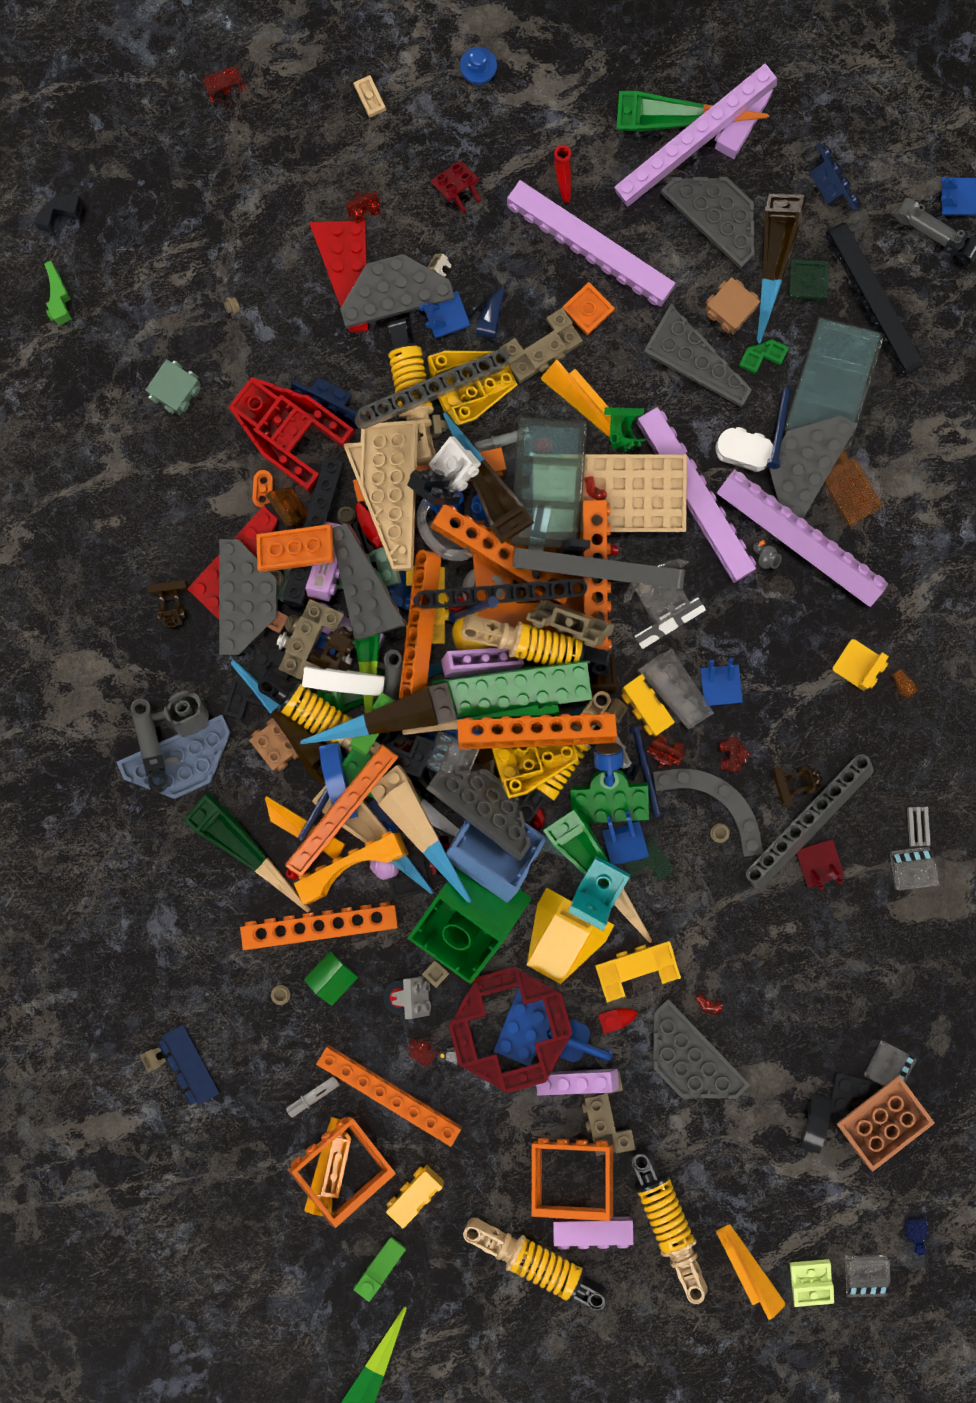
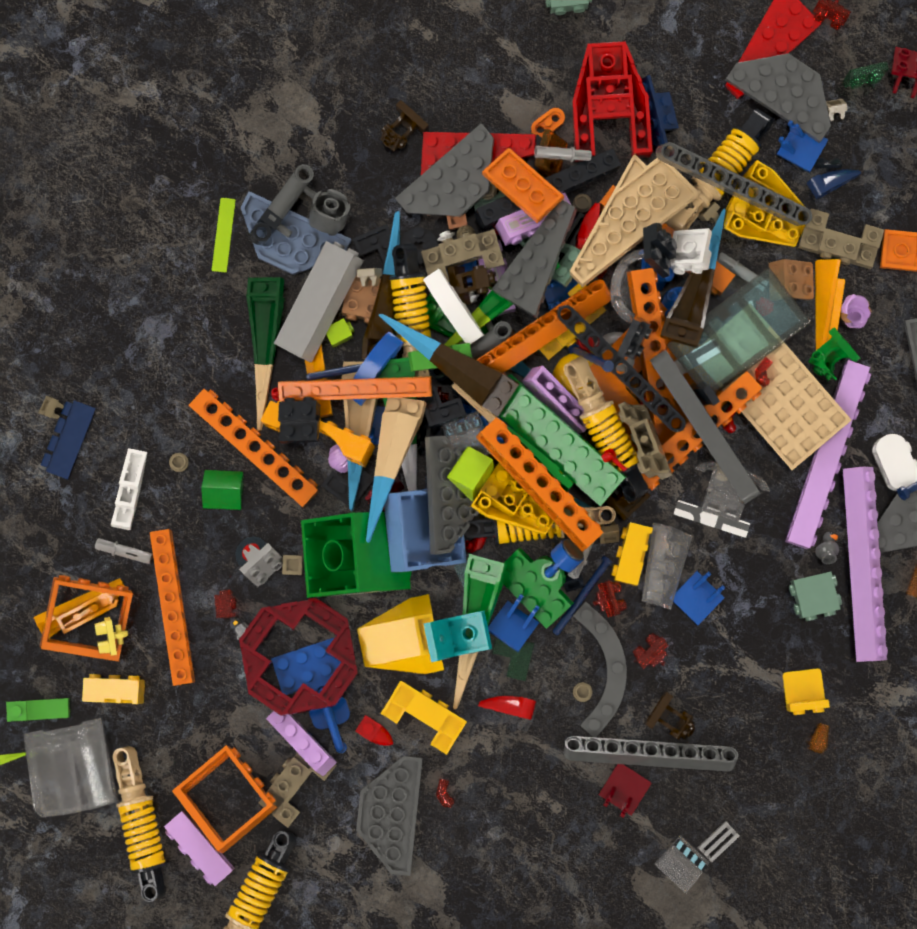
camera: 45 degrees right, 0 degrees up
(133, 810) = (223, 235): none -> lime sticker
(249, 780) = (319, 301): none -> light grey brick
(260, 725) = (370, 273): none -> dark tan tile
(268, 1051) = (129, 489): none -> white slope
(286, 785) = (340, 332): none -> lime brick
(293, 500) = (562, 153): none -> light grey axle
(329, 874) = (299, 420): none -> black plate
(377, 1170) = (109, 645): none -> light yellow hips
(433, 219) = (866, 74): none -> clear green plate
(447, 1283) = (69, 769): none -> clear windscreen
(482, 775) = (471, 472): none -> lime slope
(490, 569) = (634, 338): none -> black plate
(541, 404) = (795, 277): none -> medium nougat bracket
(560, 658) = (610, 455): none -> red hand
(605, 381) = (855, 311): none -> lavender hair
(684, 896) = (510, 705): none -> red piece
(795, 595) = (815, 596): none -> sand green brick

